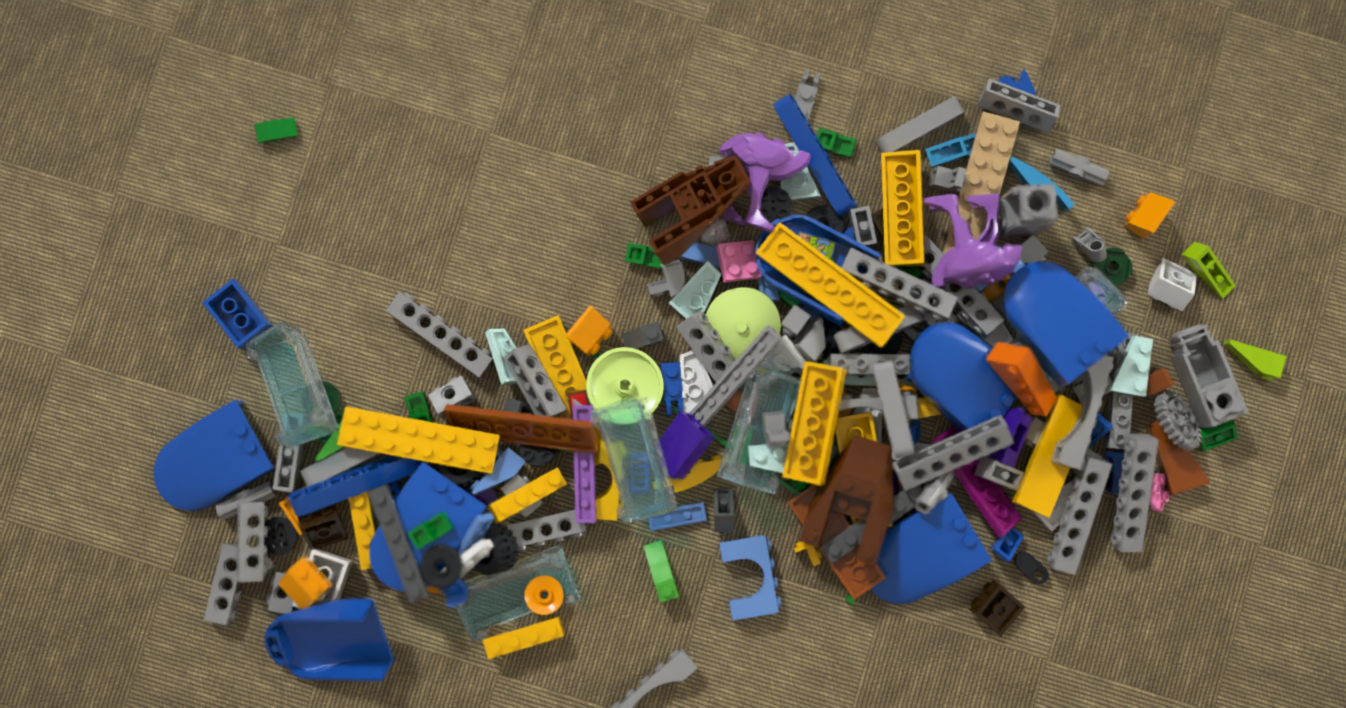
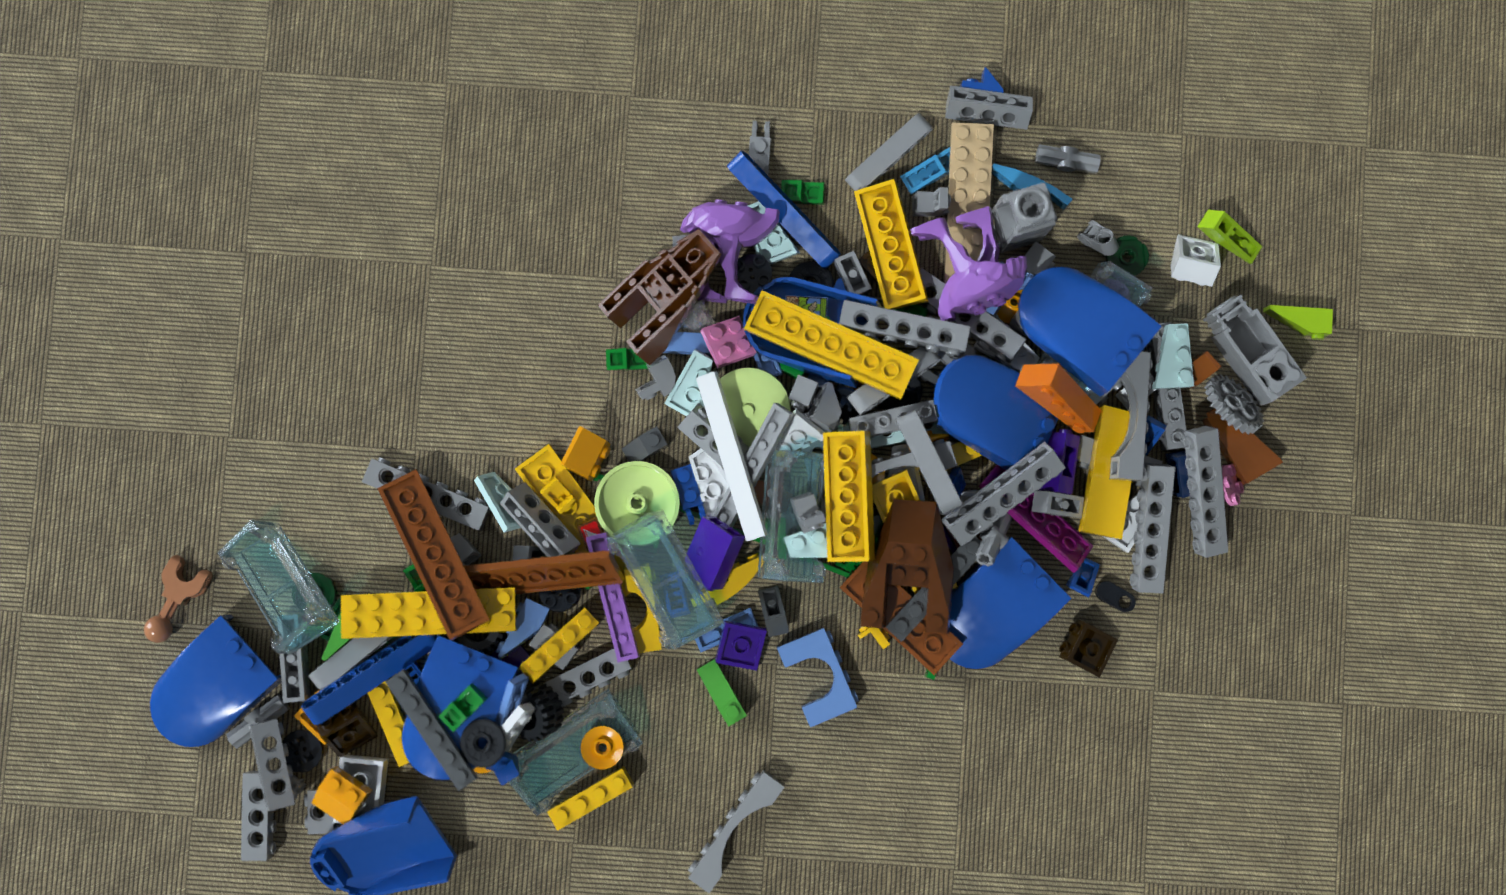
camera: 15 degrees left, 0 degrees up
(202, 370) = (178, 592): none -> nougat piece
(237, 313) = (201, 522): blue brick -> none
(276, 129) = (199, 315): green slope -> none
(435, 390) = (433, 555): none -> dark orange plate
(556, 363) = (558, 496): none -> yellow bracket
(687, 533) = (740, 645): none -> dark purple plate
(718, 363) = (731, 456): none -> white tile
(1148, 214) = (1152, 192): light orange slope -> none
(1218, 435) = (1279, 410): green slope -> none

